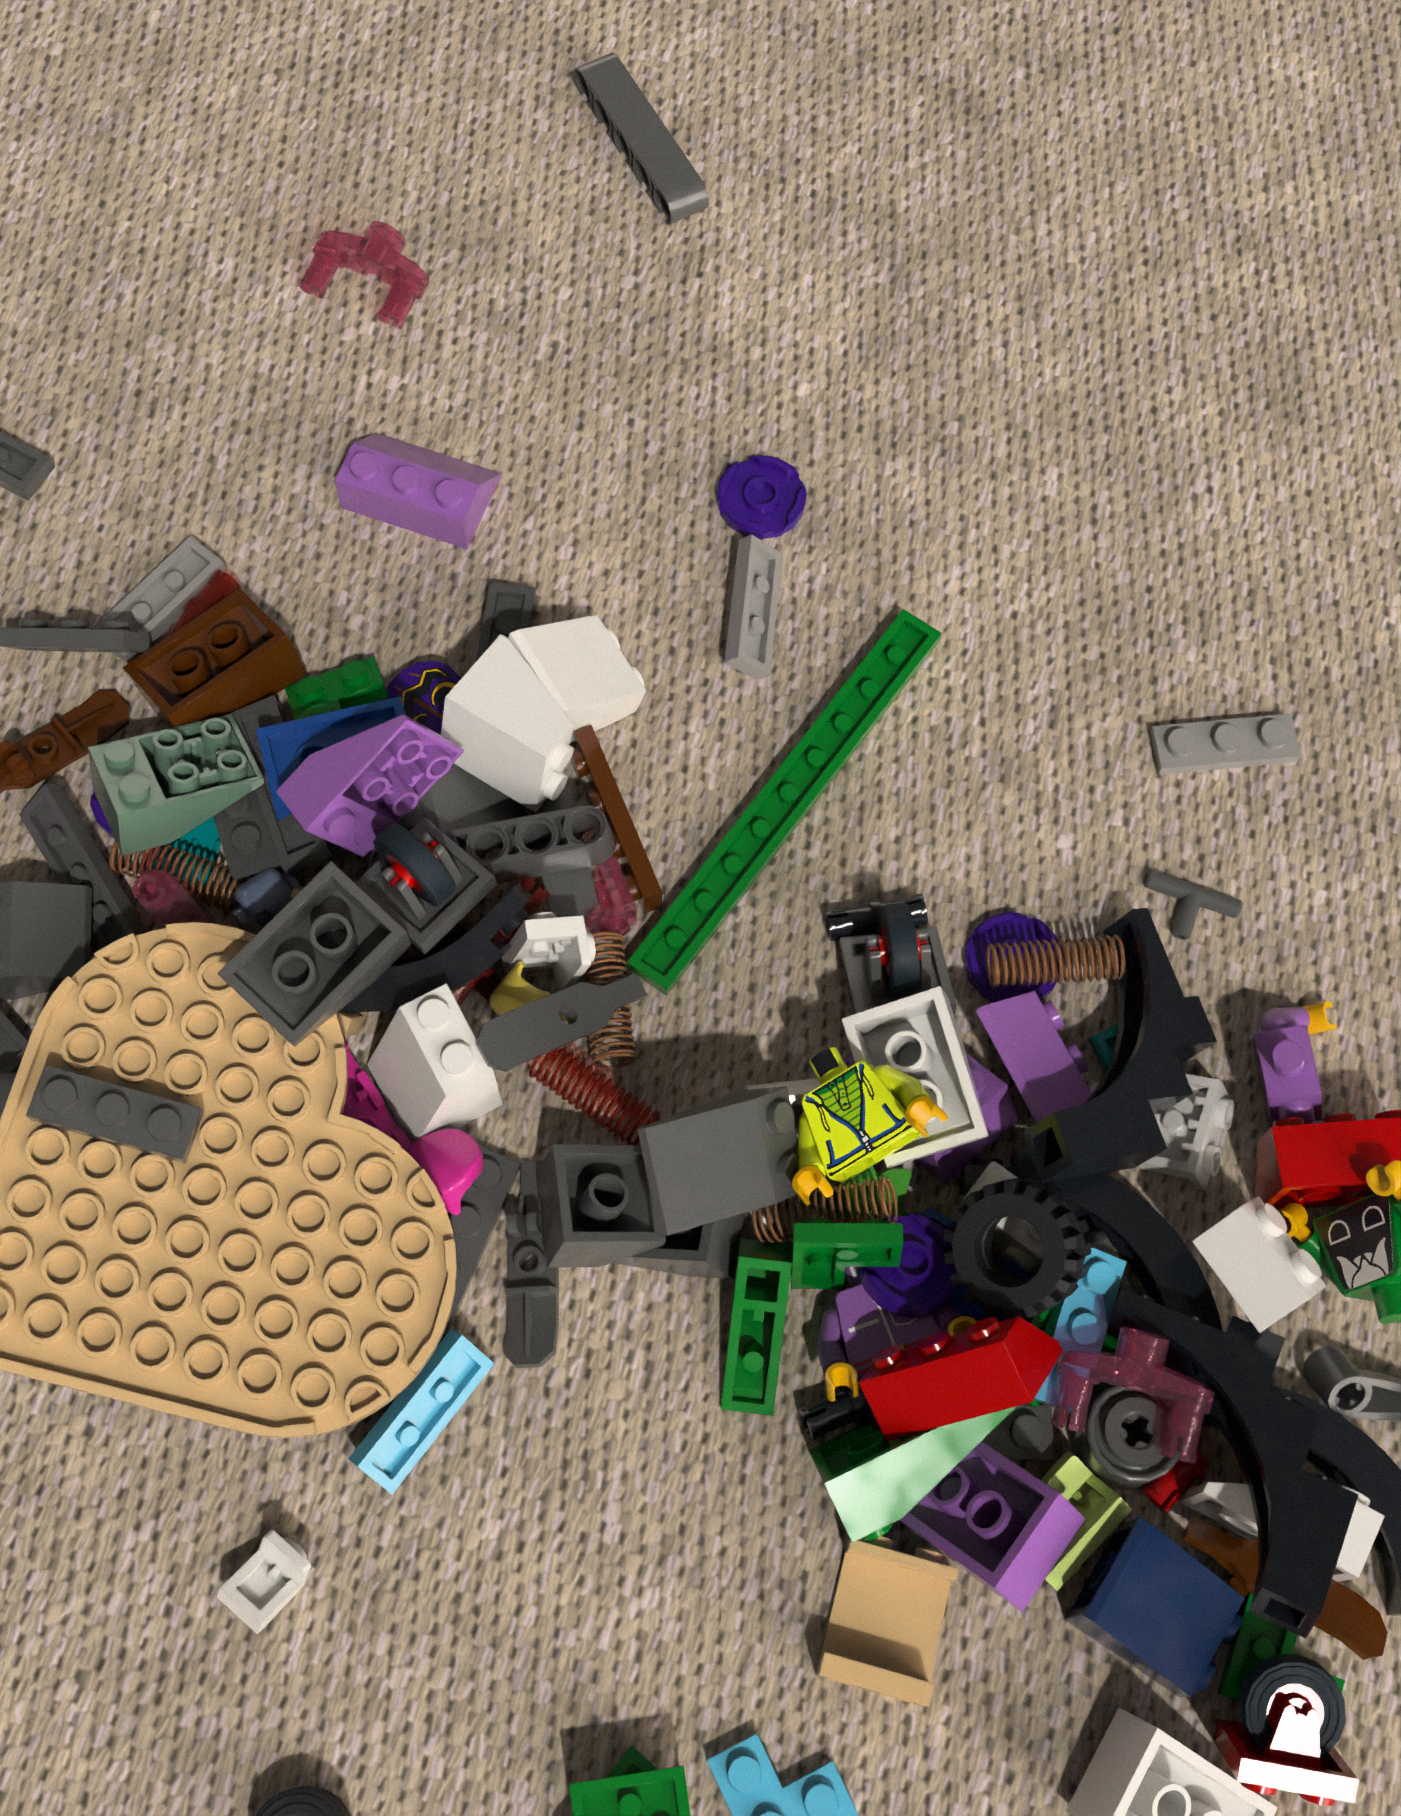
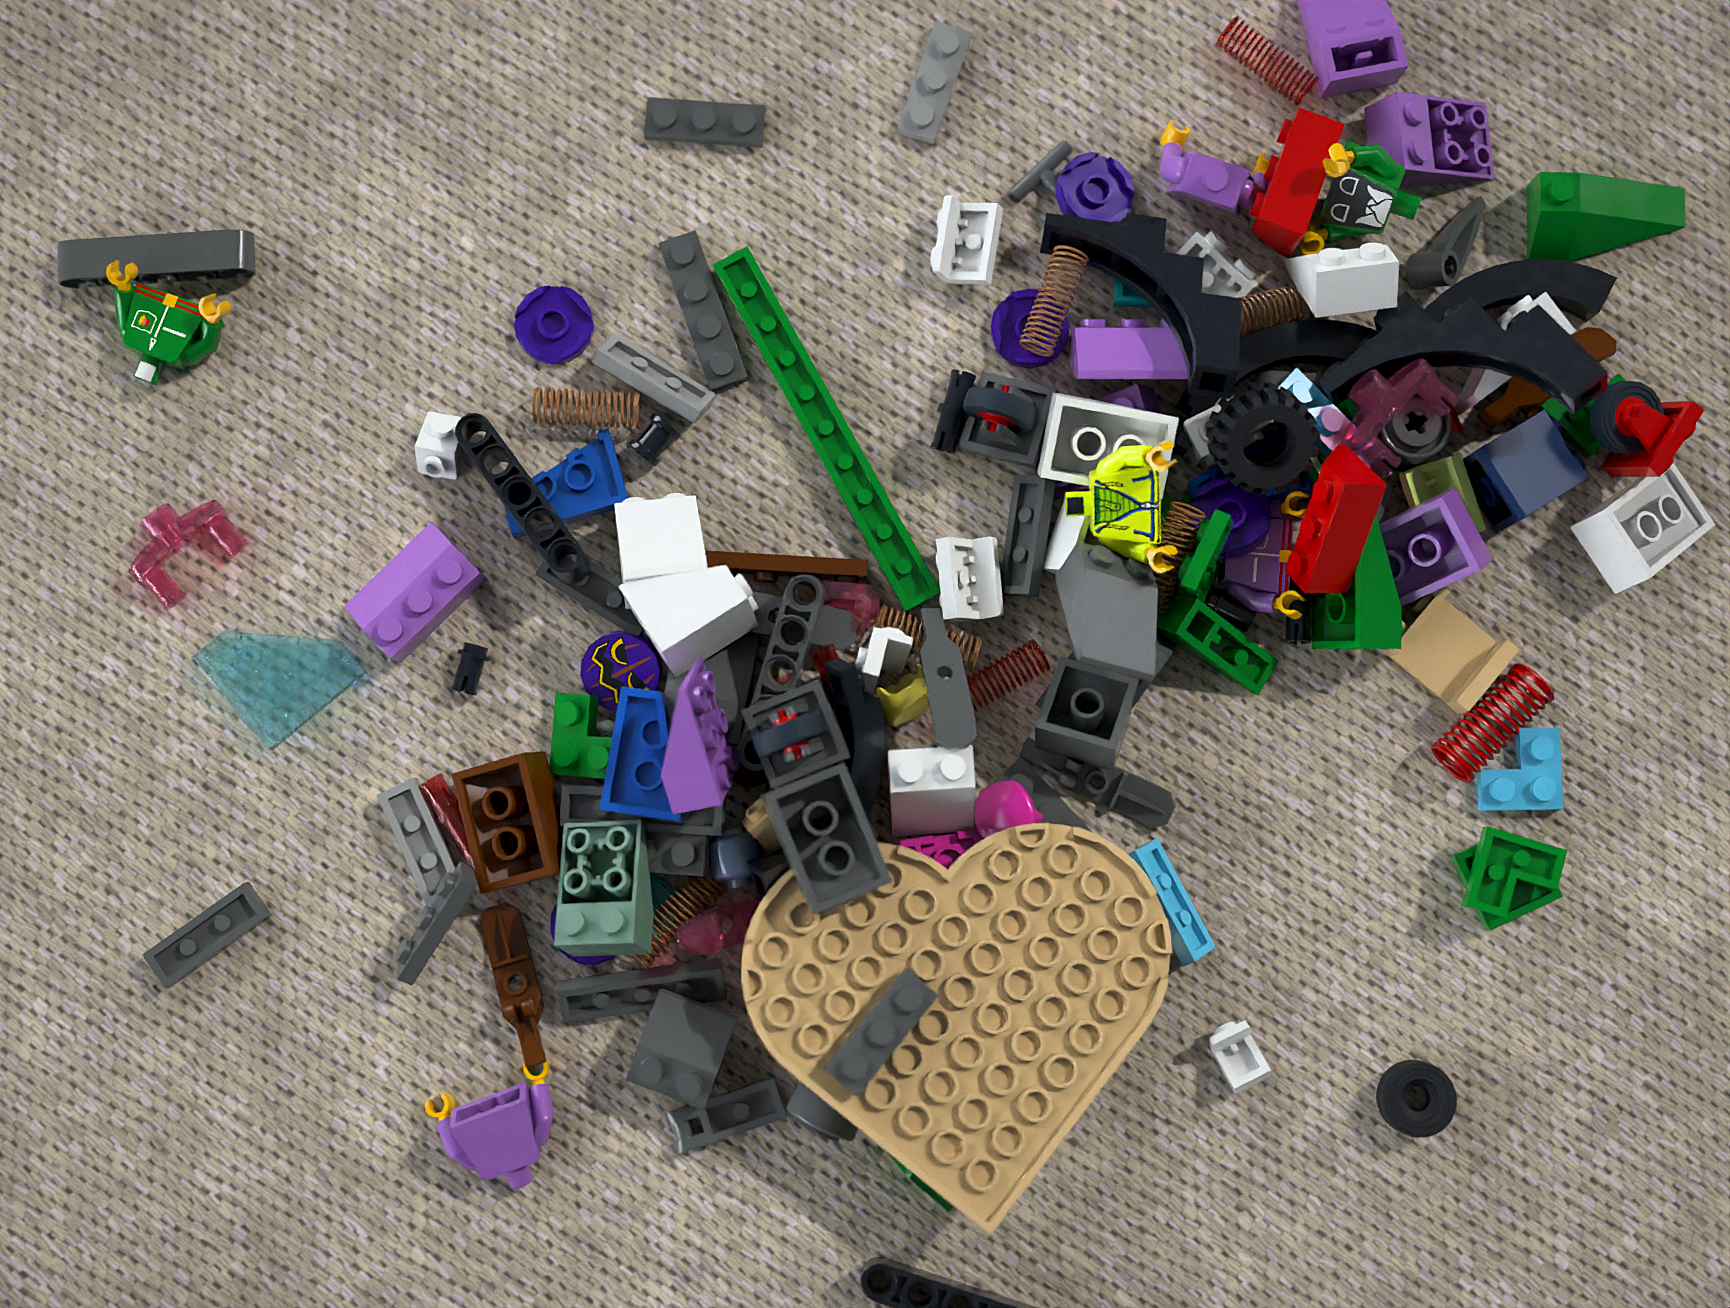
camera: 65 degrees left, 15 degrees up
(273, 405) = (278, 678): none -> clear light blue plate
(363, 568) = (470, 665): none -> black pin
(558, 531) = (509, 485): none -> black beam
(577, 164) = (163, 325): none -> green torso
(582, 443) = (438, 446): none -> white bracket
(593, 579) = (579, 485): none -> blue wing
(688, 635) = (654, 439): none -> black bush
(694, 1011) = (969, 578): none -> white bracket
(718, 594) = (637, 401): none -> medium nougat piece
(771, 1056) = (1026, 536): none -> dark grey plate
(804, 1323) = (1230, 609): none -> black pin
(850, 627) = (703, 311): none -> dark grey plate
(900, 1735) = (1461, 768): none -> red piece
(1050, 545) = (704, 122): none -> dark grey plate
(1069, 845) = (966, 241): none -> white bracket
(1155, 1160) = (1275, 310): none -> medium nougat piece
(1208, 956) = (1095, 188): none -> dark purple tile

